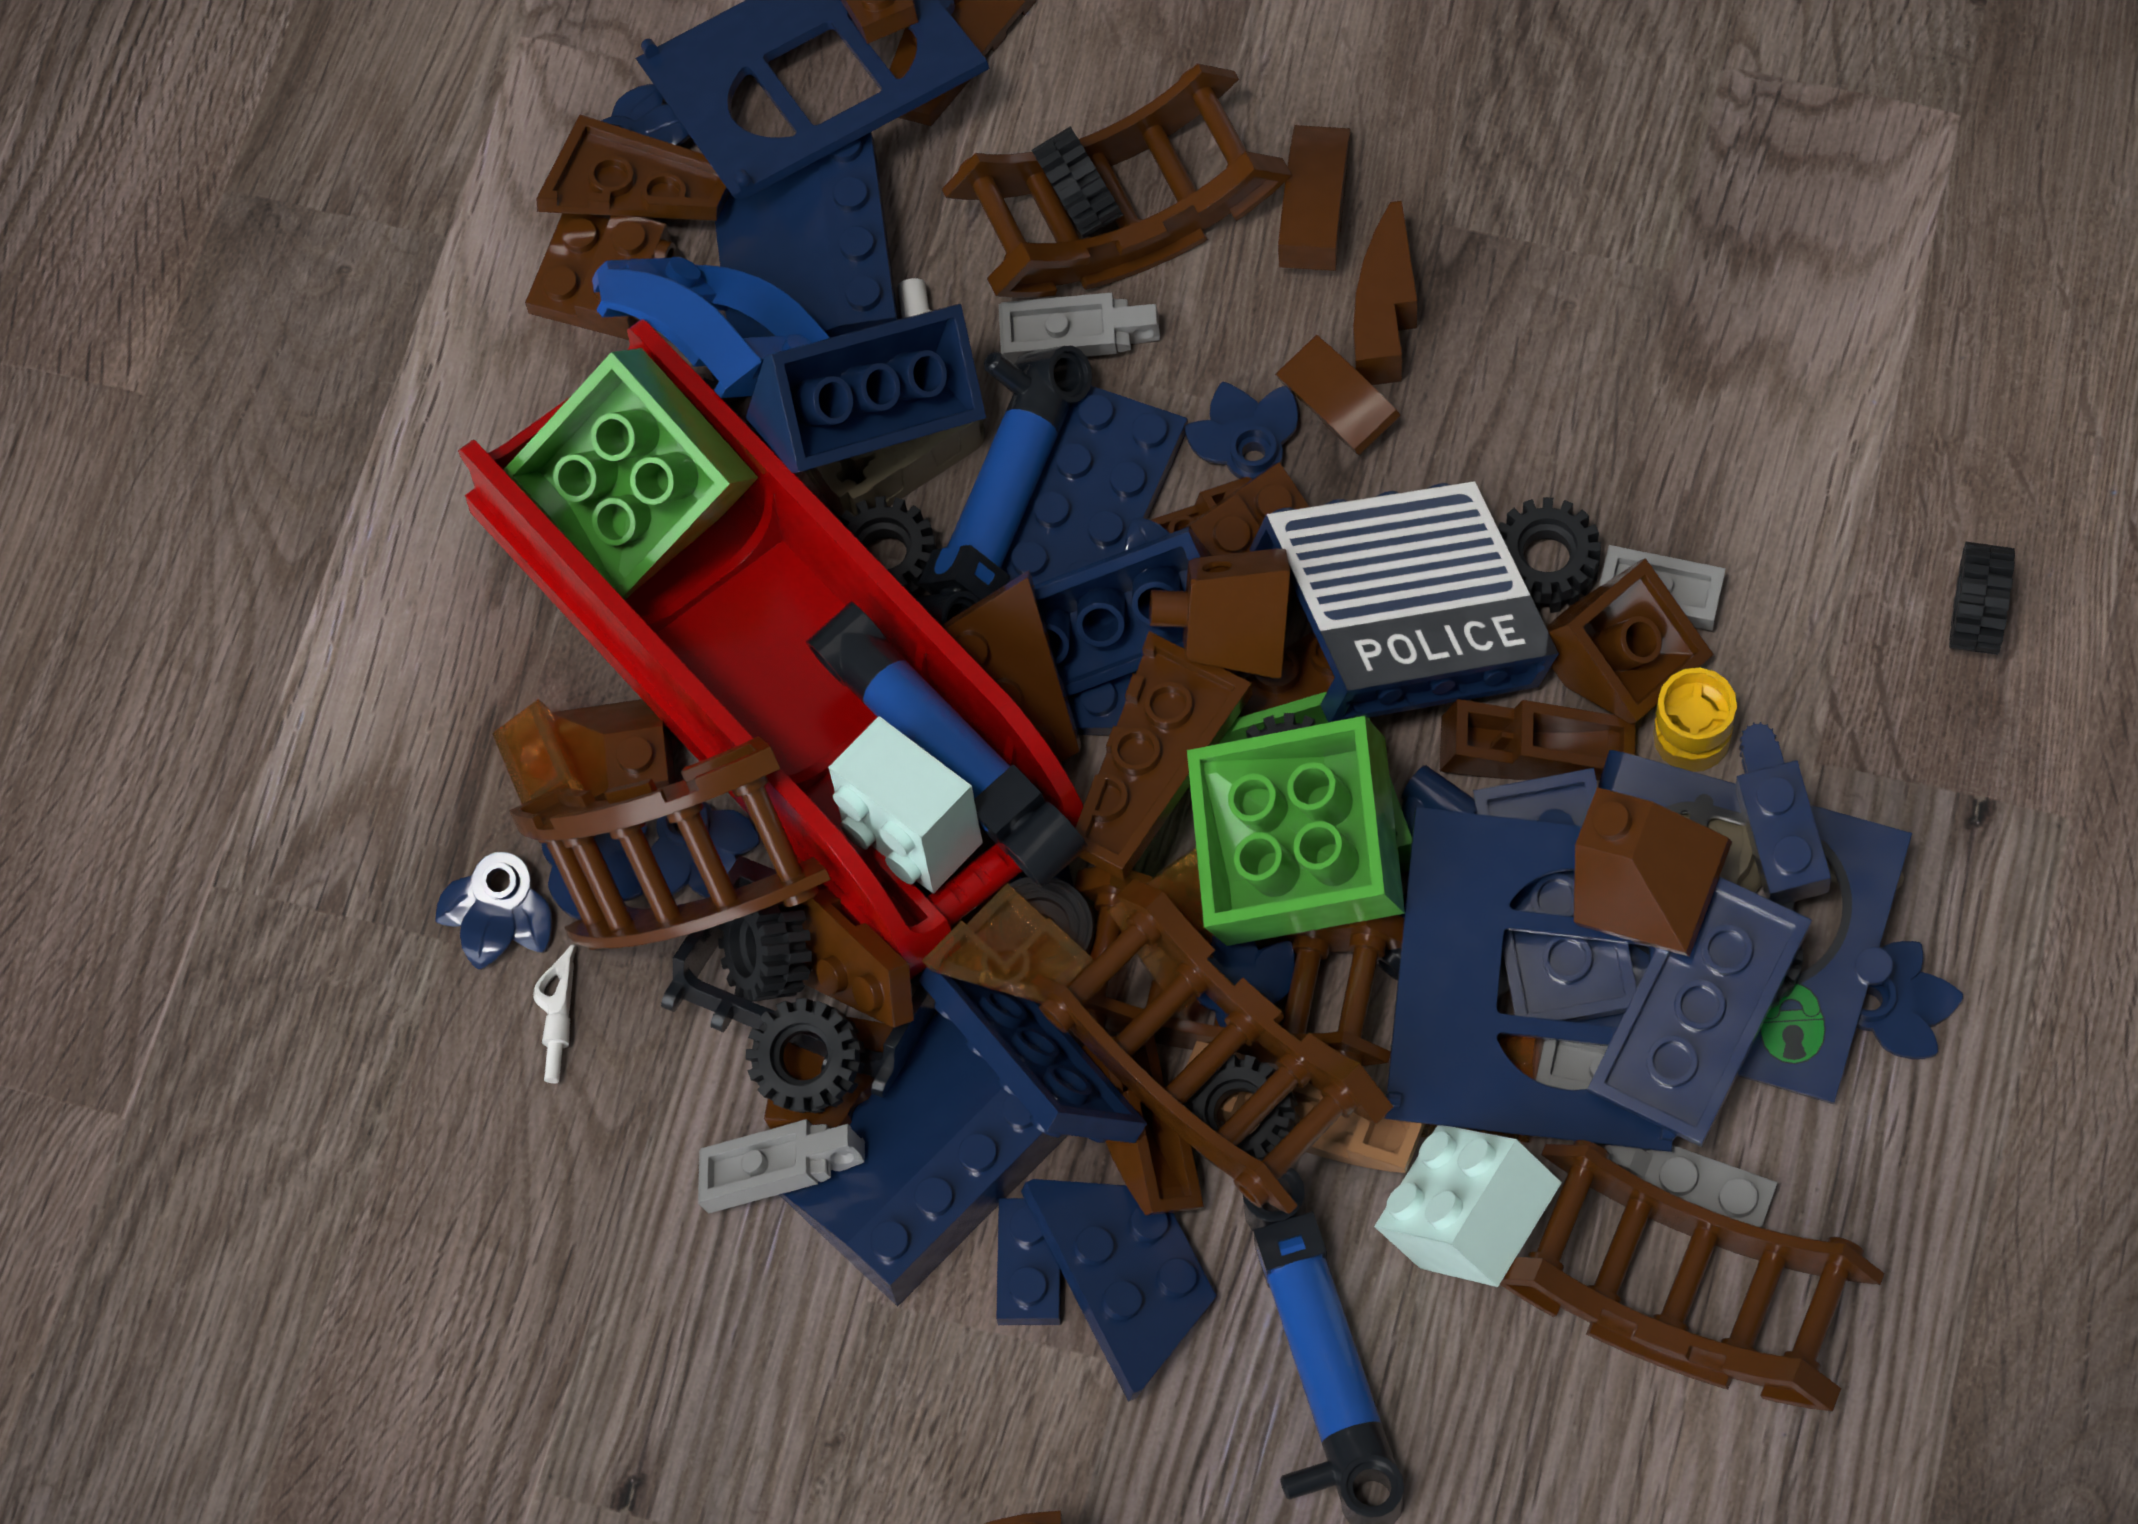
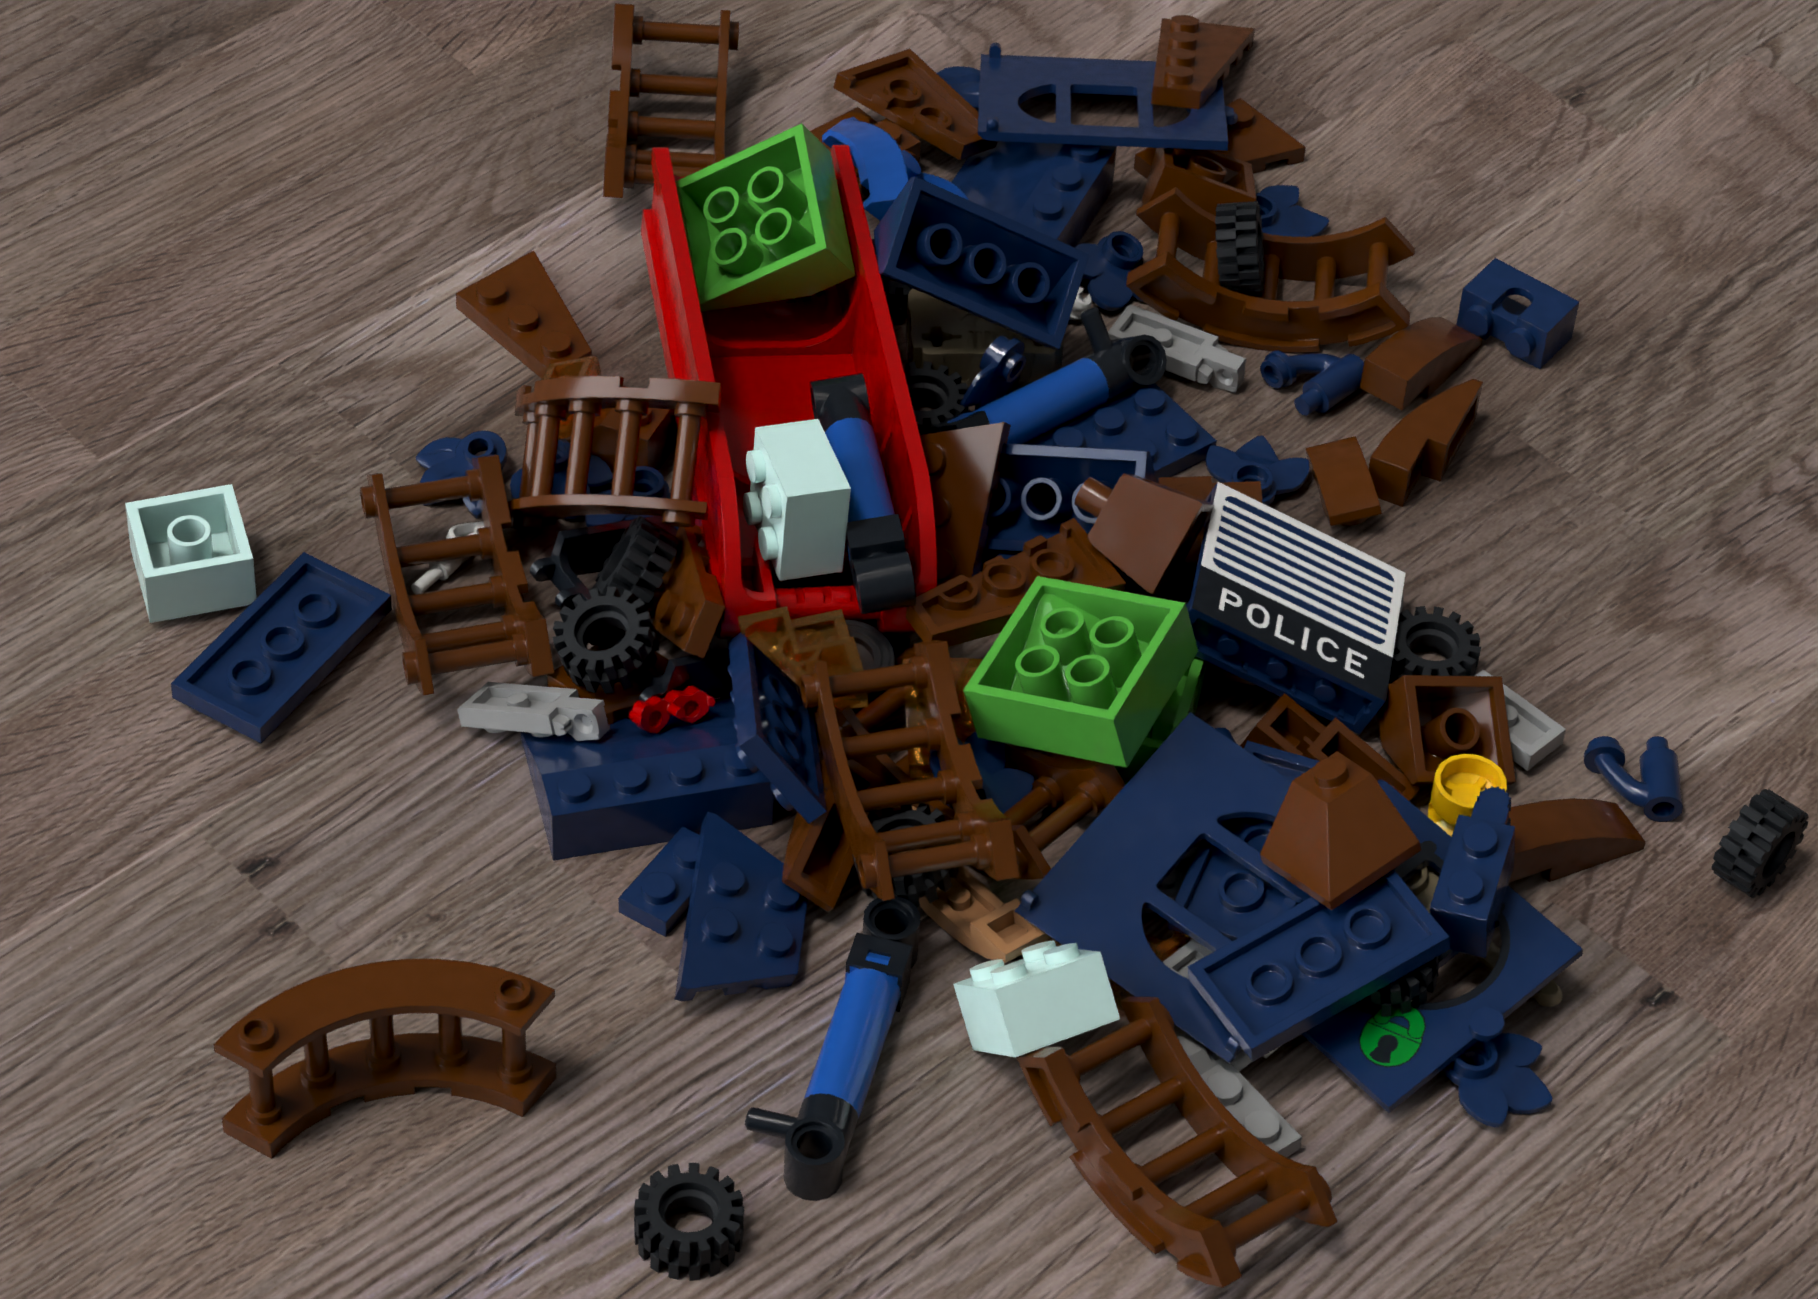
camera: 20 degrees right, 20 degrees down
(316, 1190) = (191, 553): none -> light aqua brick
(353, 376) = (622, 161): none -> reddish brown fence
(422, 678) = (524, 314): none -> reddish brown wing
(475, 1235) = (281, 647): none -> dark blue plate
(642, 1030) = (522, 630): none -> reddish brown fence
(911, 1075) = (685, 705): none -> red piece
(942, 471) = (999, 375): none -> dark blue plate
(952, 272) = (1109, 268): none -> dark blue plate
(975, 117) = (1201, 176): none -> reddish brown slope
(1071, 93) = (1284, 217): none -> dark blue plate
(1253, 268) = (1335, 378): none -> dark blue plant
(1353, 63) = (1528, 332): none -> dark blue brick
(1799, 688) = (1569, 836): none -> reddish brown slope
(1845, 578) = (1659, 771): none -> dark blue plant

